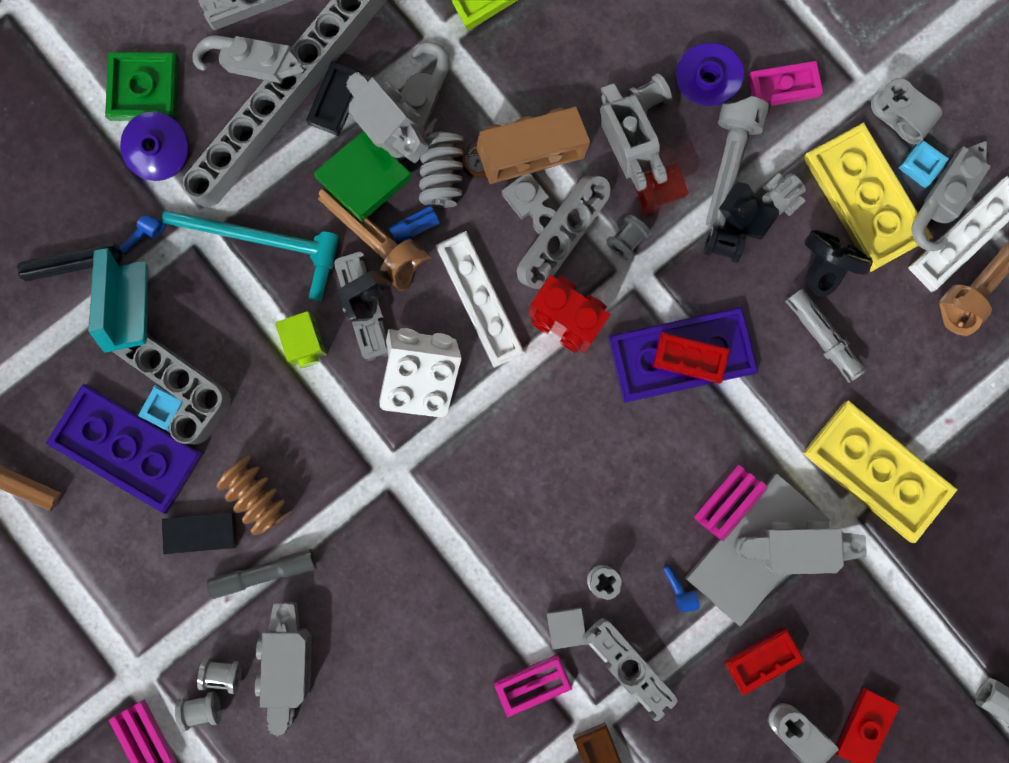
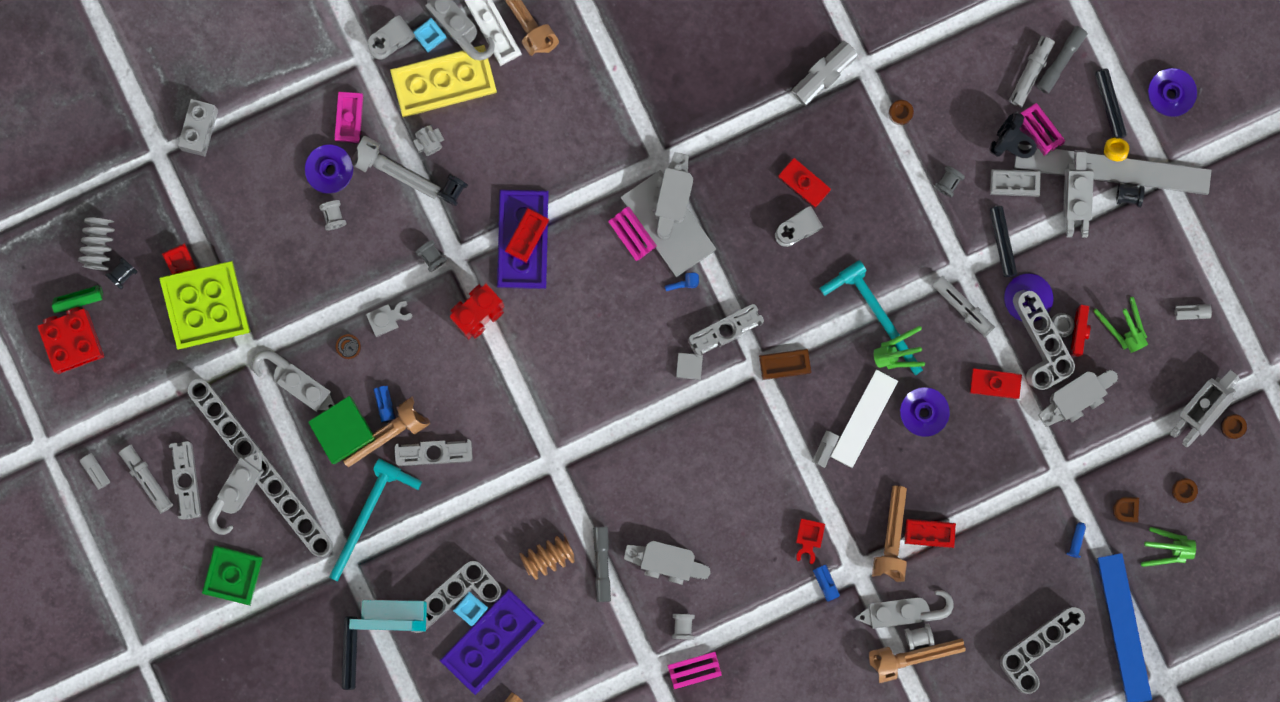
camera: 75 degrees left, 0 degrees up
(145, 225) = (337, 591): blue hand -> none
(170, 146) = (267, 575): dark purple dish -> none
(199, 533) = (563, 602): black tile -> none
(219, 675) = (663, 607): light grey bush -> none
(301, 340) = (447, 500): lime brick -> none
(332, 100) = (276, 438): black tile -> none
(363, 290) = (426, 448): black bracket -> none
(386, 118) = (307, 403): light grey hinge -> none
(419, 373) = (491, 422): white bracket -> none
(439, 168) = (350, 374): light grey piece -> none
(480, 299) = (448, 370): white tile -> none
(500, 684) = (725, 419): dark pink tile -> none
(532, 144) = (349, 306): medium nougat brick -> none
(560, 227) = (413, 301): light grey beam -> none
(593, 580) = (660, 339): light grey bush -> none
(631, 137) = (362, 237): light grey hinge -> none
(660, 194) = (403, 224): clear red panel -> none
(747, 213) = (435, 168): black bracket -> none
(763, 661) = (742, 239): red plate -> none
(827, 337) = (532, 138): light grey pin -> none
(834, 260) = (482, 118): black tile -> none
(880, 471) = (636, 126): light yellow tile -> none

